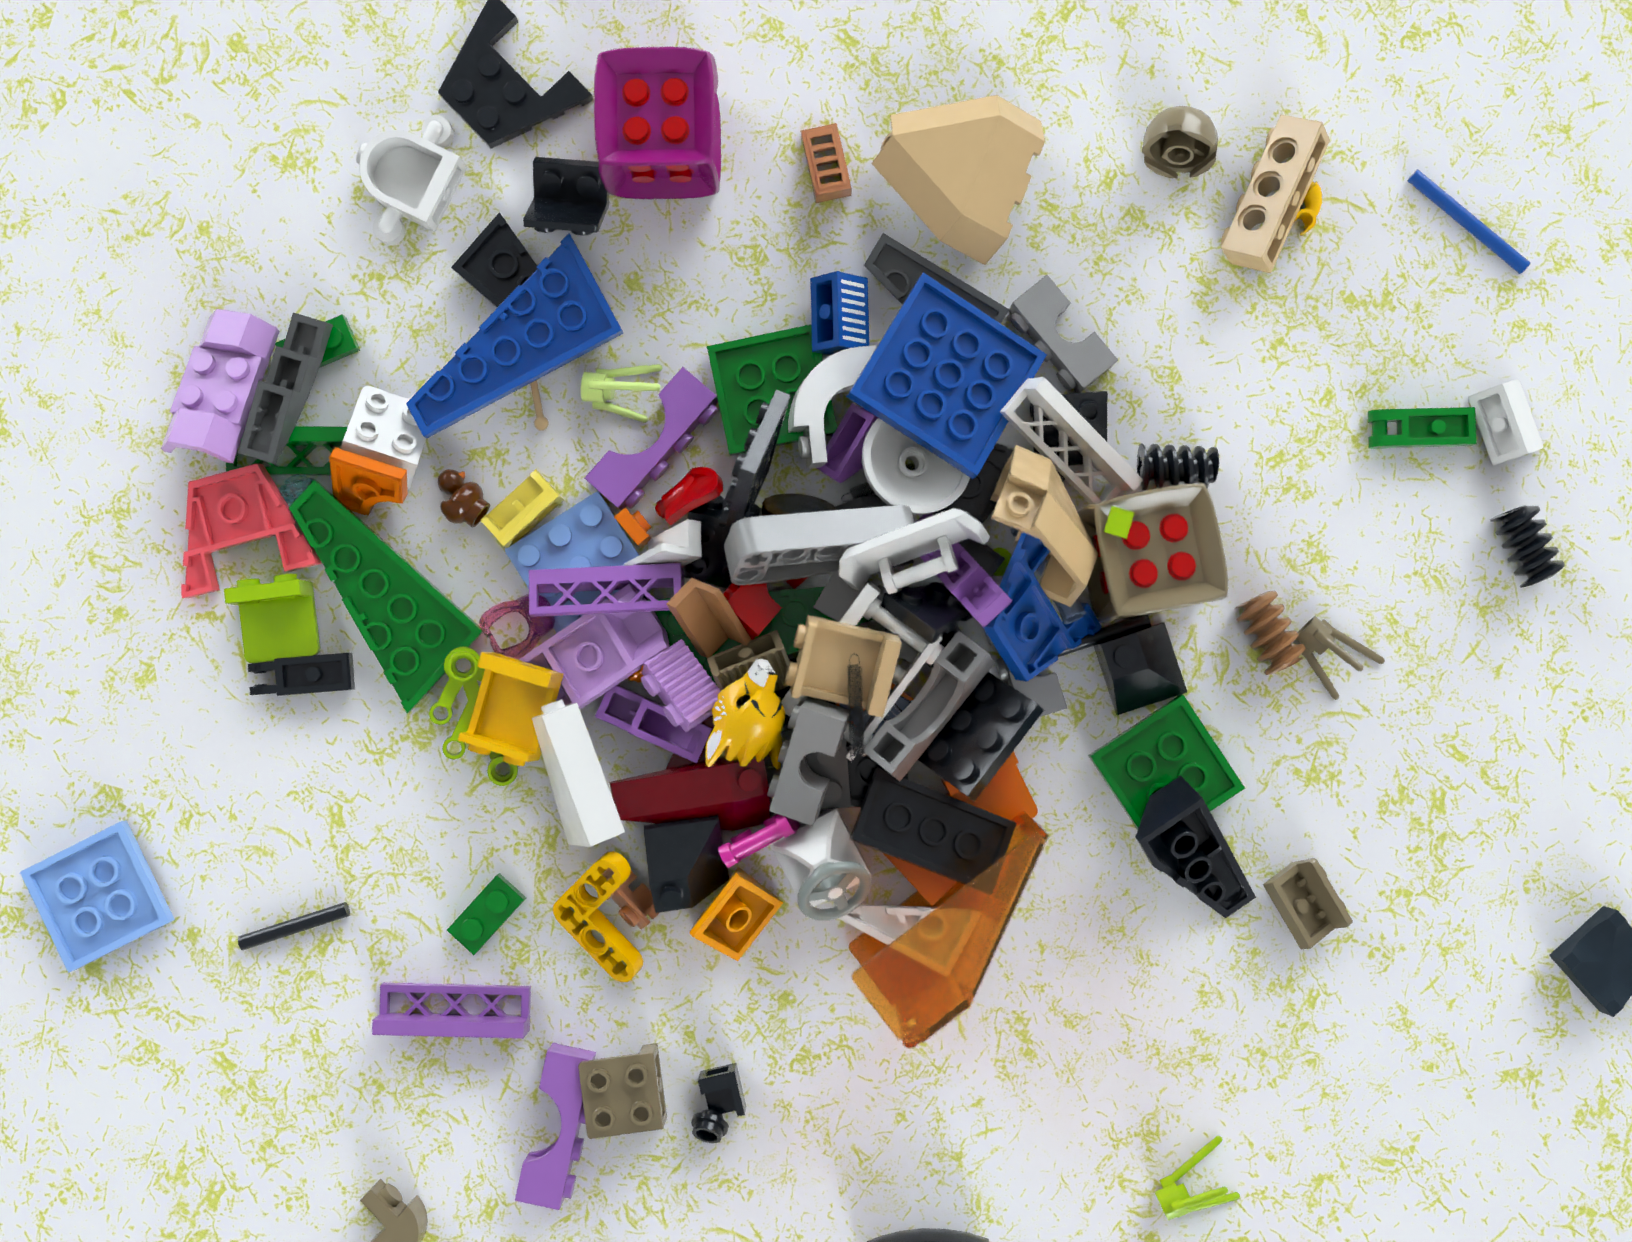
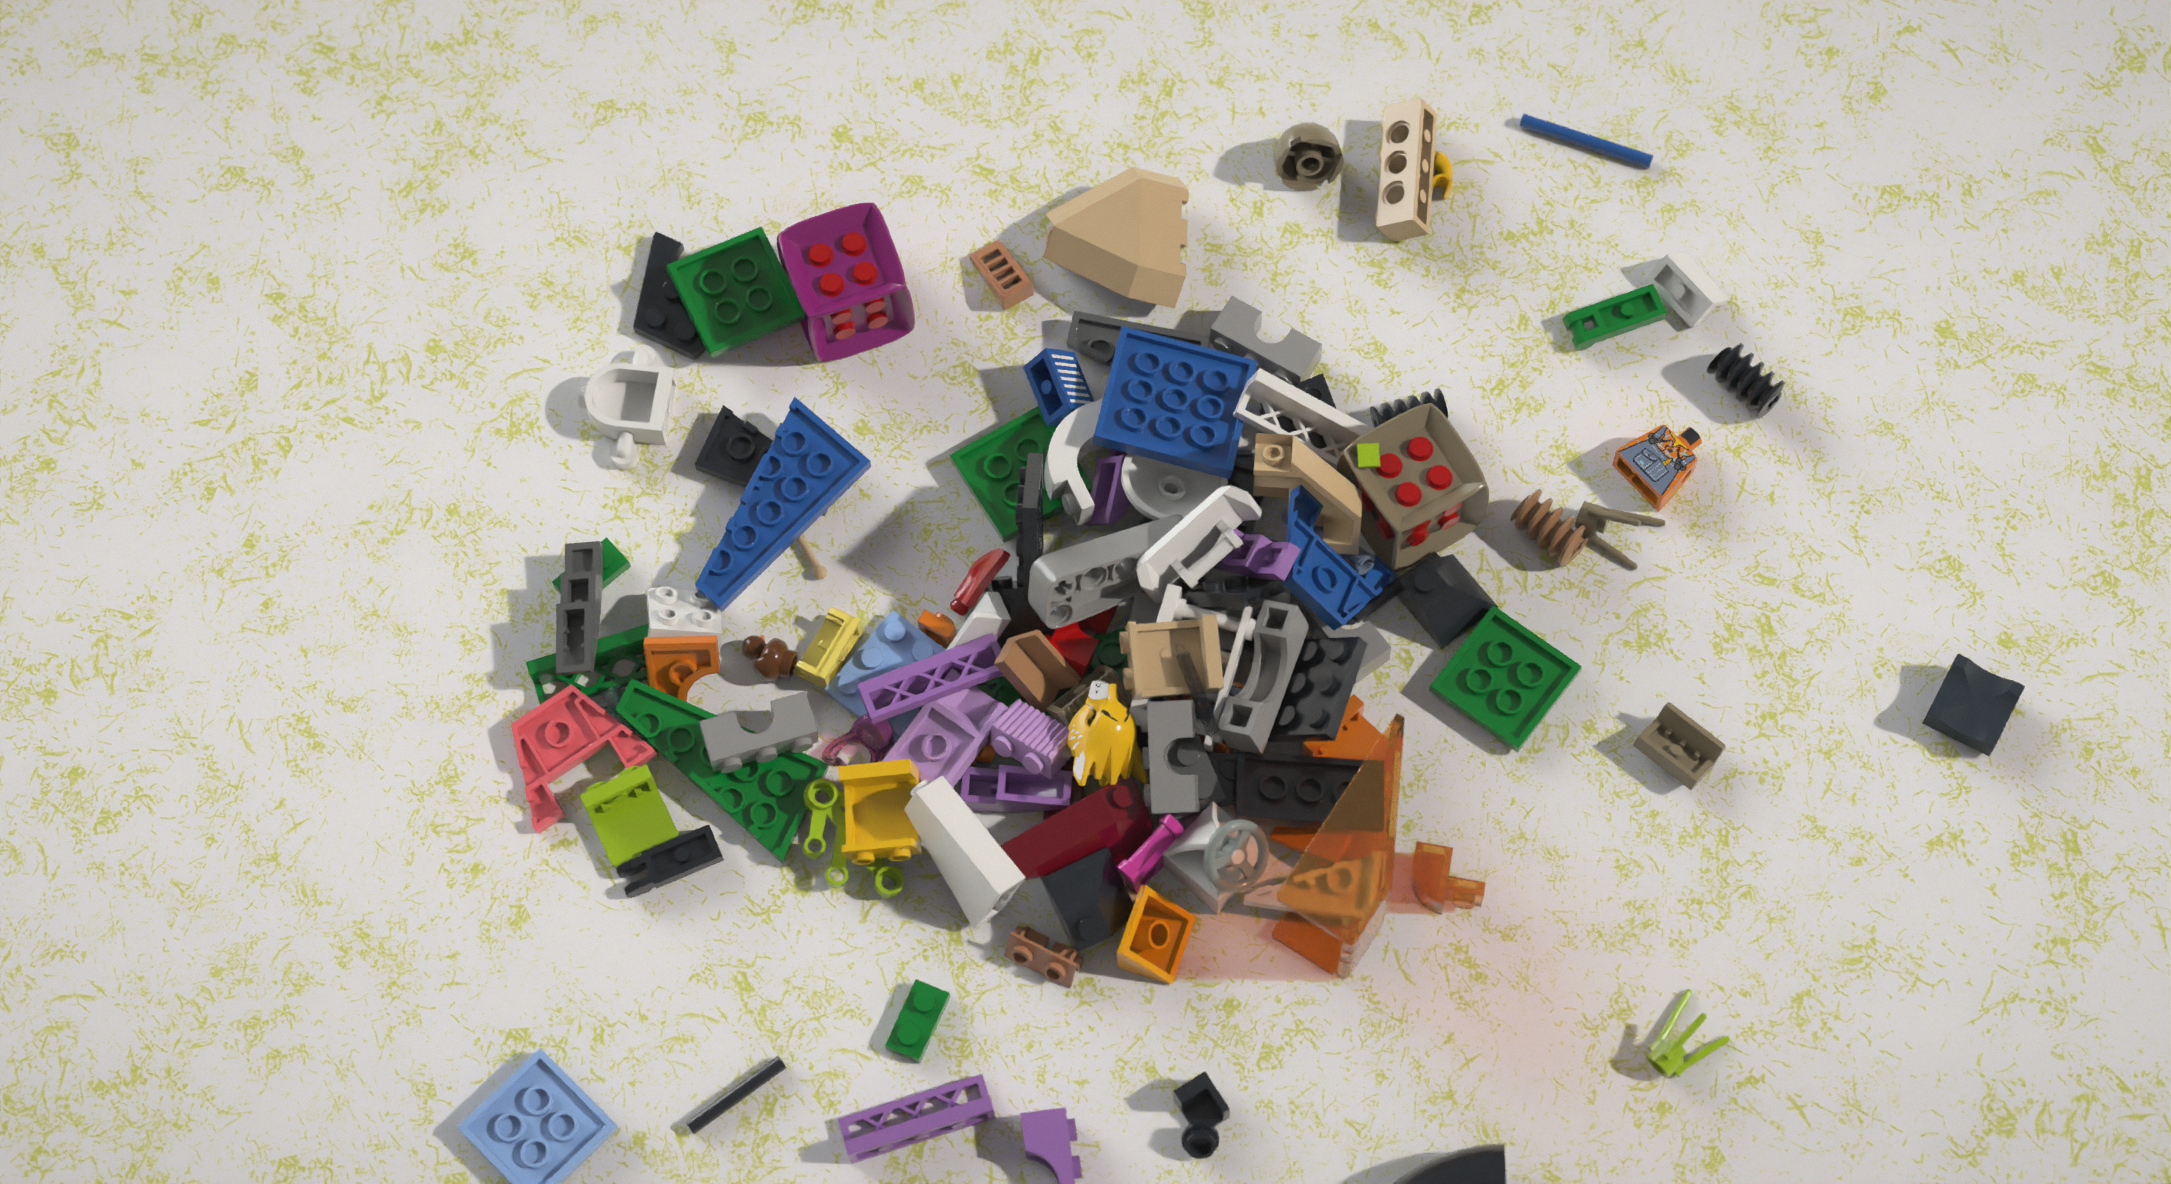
camera: 15 degrees left, 20 degrees down
(220, 384) = (516, 625): lavender piece -> none
(385, 584) = (731, 746): none -> light grey arch
(544, 91) = (736, 292): none -> green plate
(566, 196) = (781, 368): black bracket -> none
(586, 909) = (1012, 976): yellow beam -> none
(601, 386) = (864, 520): yellowish green plant -> none
(623, 1093) = (1106, 1128): dark tan bracket -> none
(624, 475) = (913, 586): medium lavender arch -> none
(1020, 952) = (1433, 884): none -> clear orange brick
(1189, 848) = (1551, 727): black wedge -> none
(1404, 603) = (1658, 463): none -> torso

